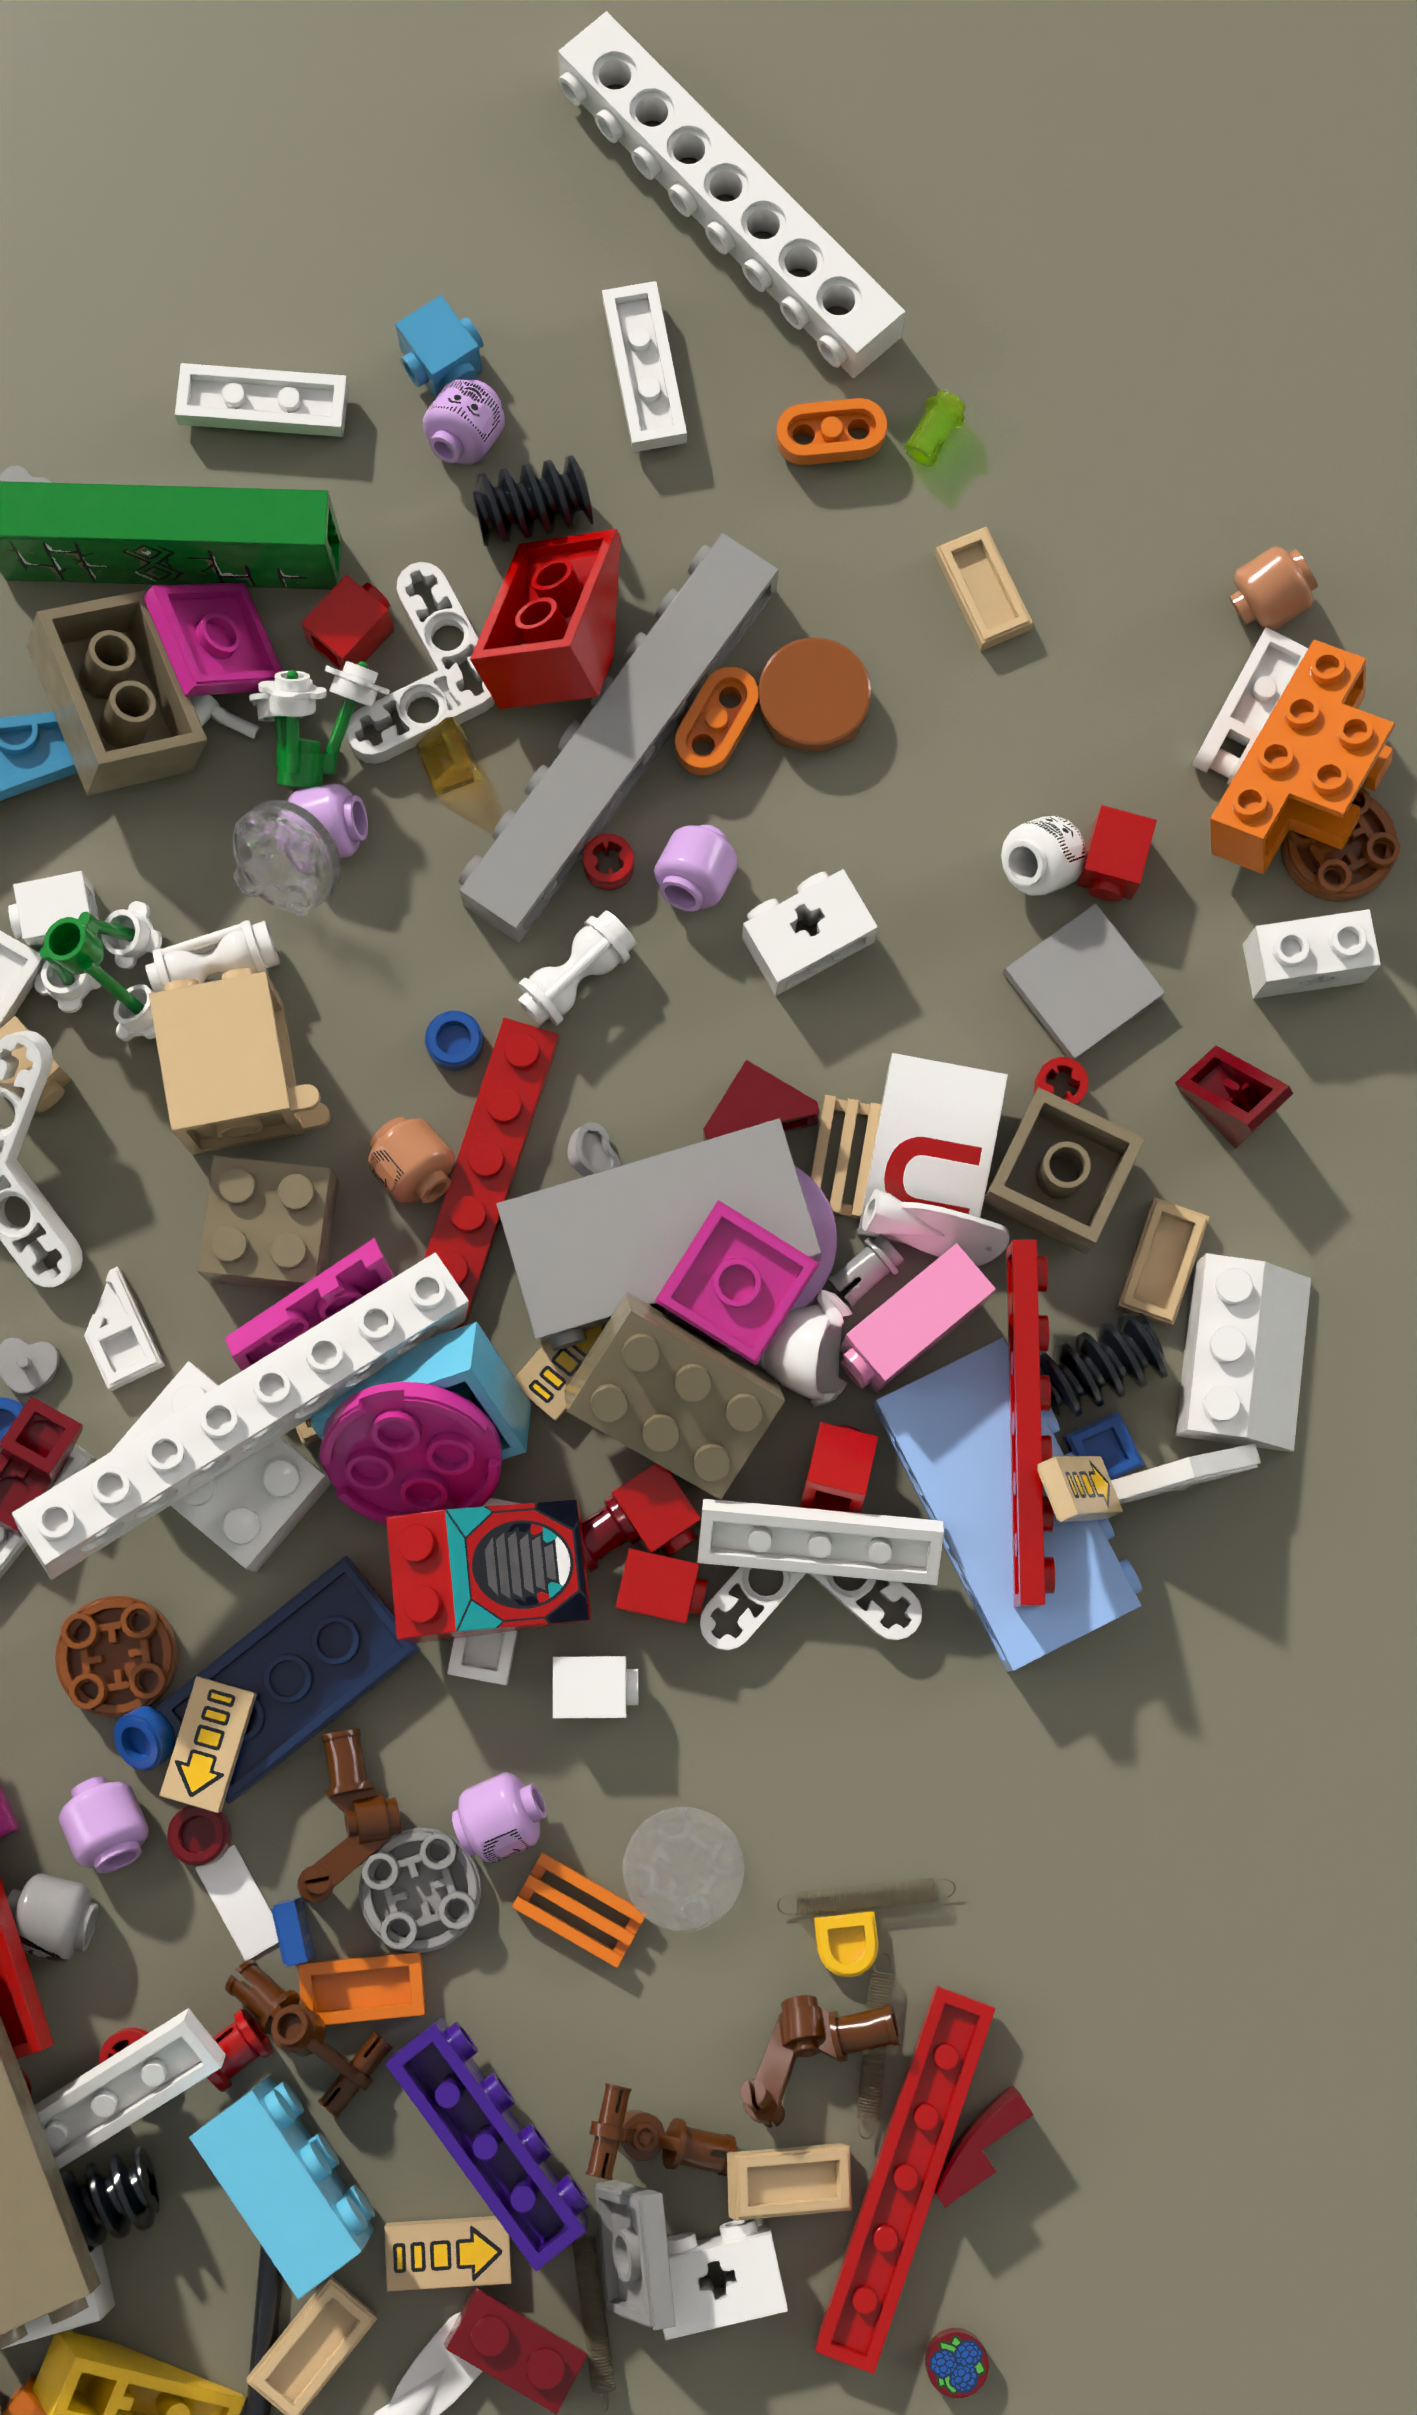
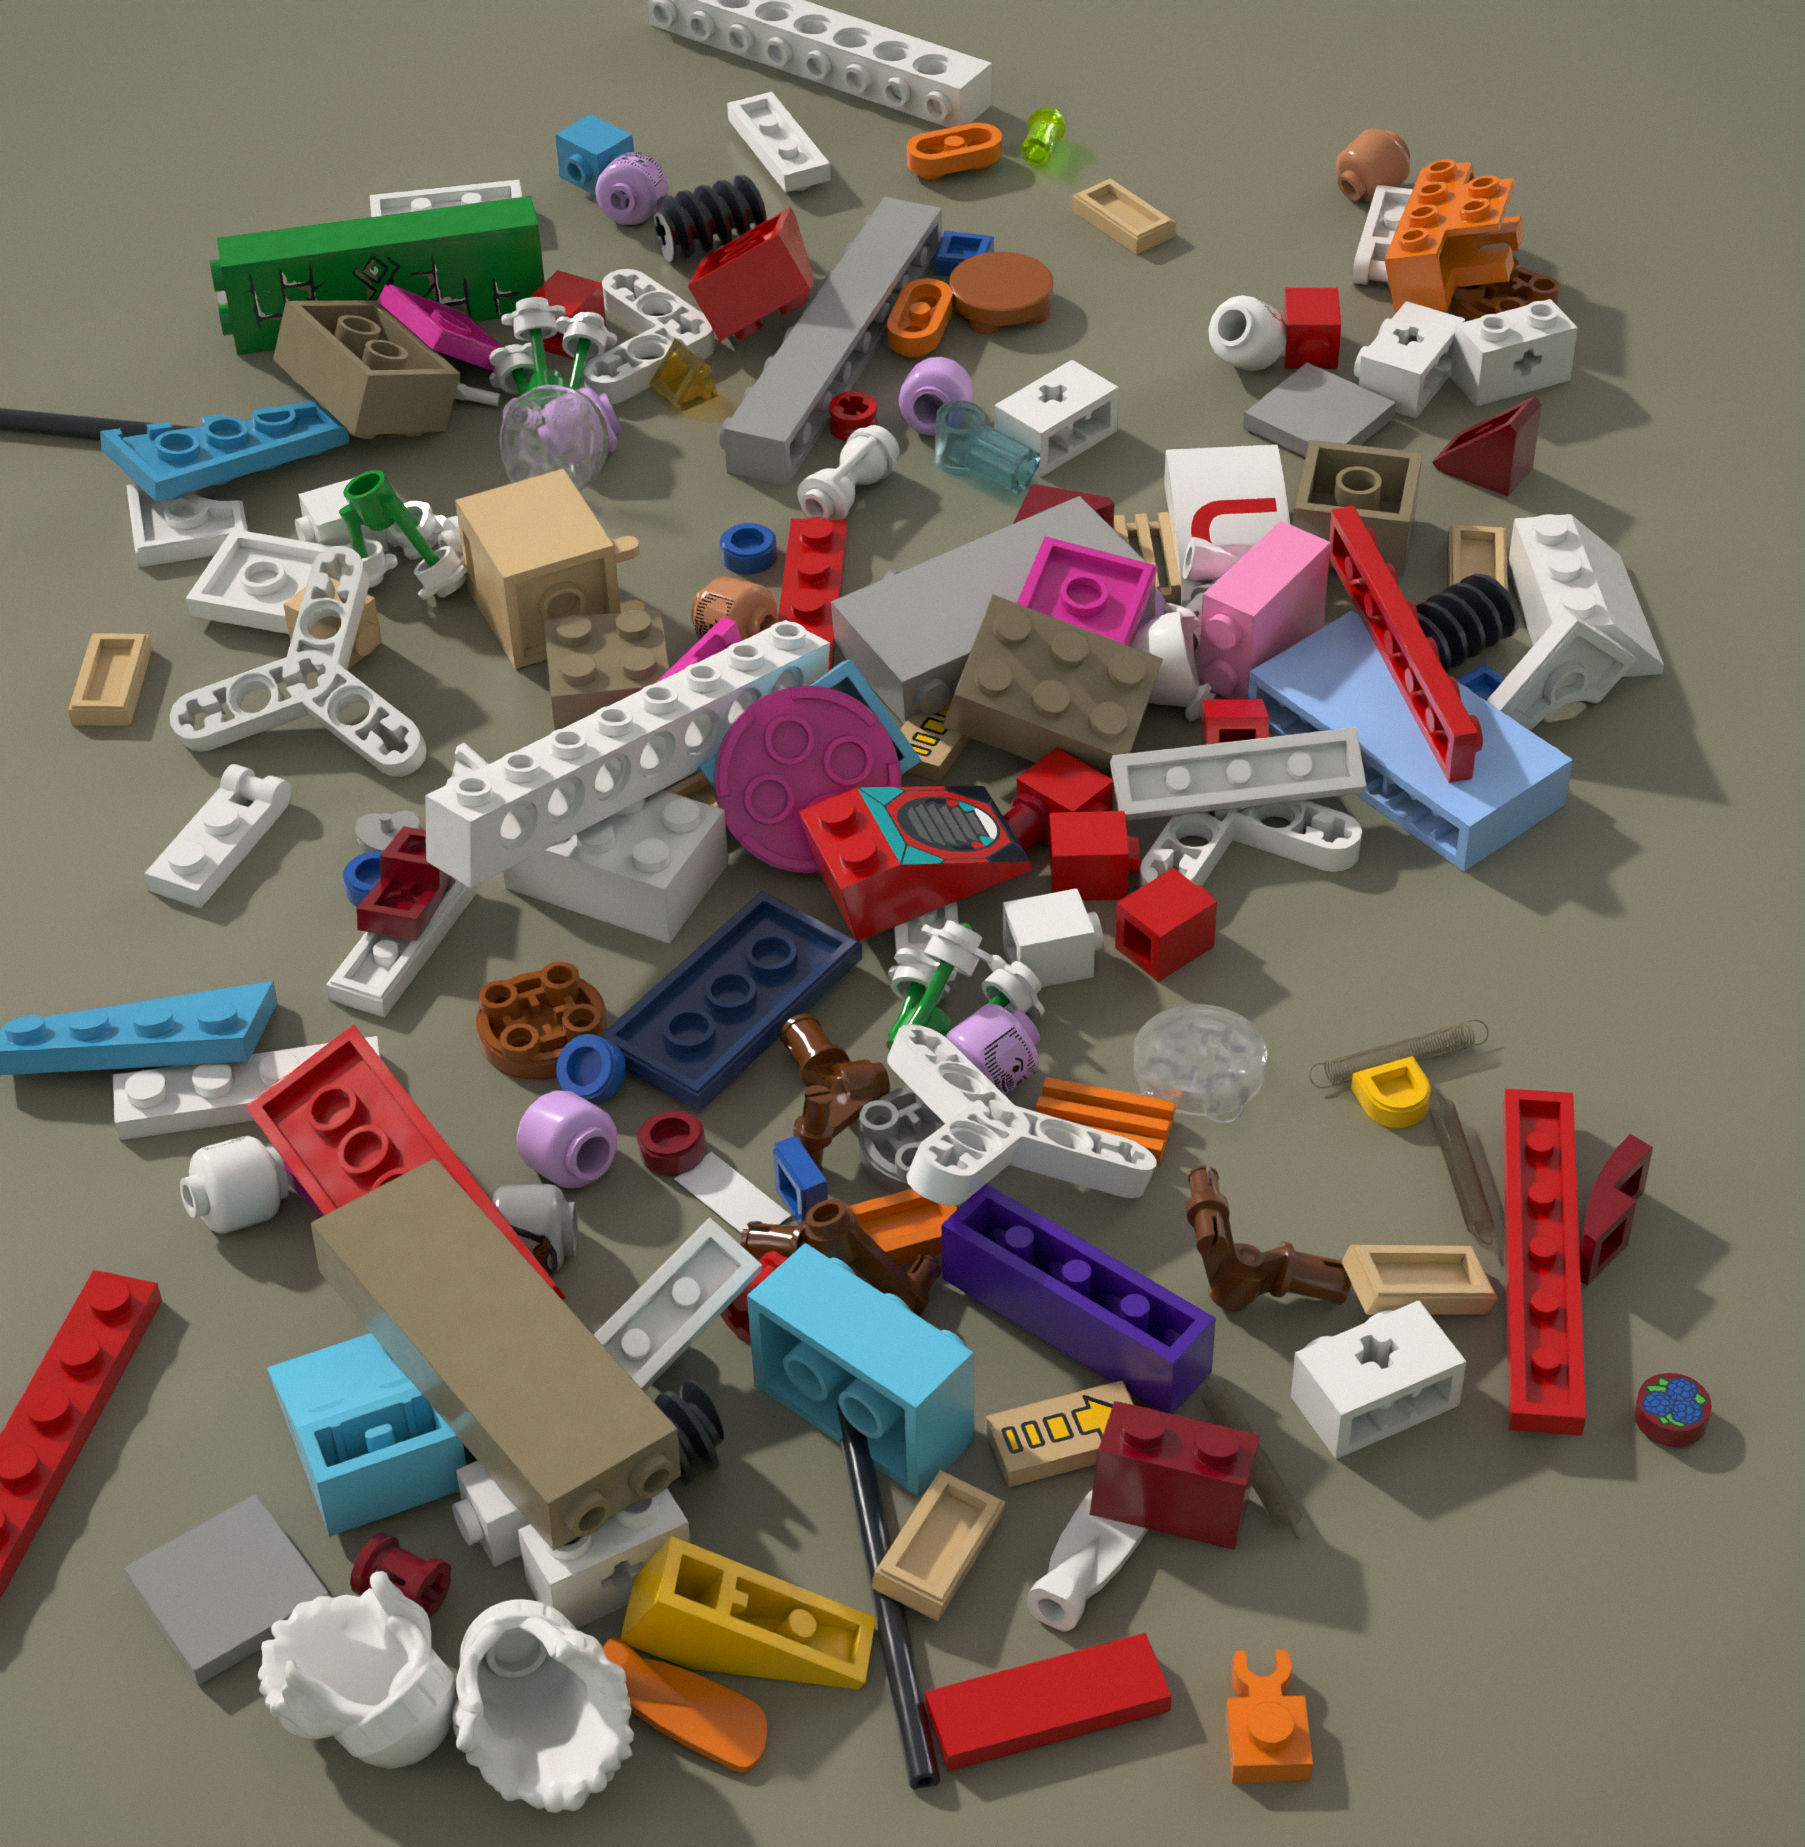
camera: 10 degrees left, 35 degrees down
(208, 1744) = (663, 1042): tan tile -> none
(455, 1977) = (990, 1132): none -> white piece
(479, 1746) = (923, 978): none -> white plant
(635, 2254) = (1277, 1348): light grey tile -> none
(705, 1694) = (1166, 924): none -> red brick
(724, 969) = (969, 446): none -> clear light blue piece
(793, 612) = (958, 247): none -> blue tile
(803, 2032) = (1383, 1157): reddish brown pin -> none
(1079, 1488) = (1472, 661): tan tile -> none
(1228, 911) = (1409, 357): none -> white brick

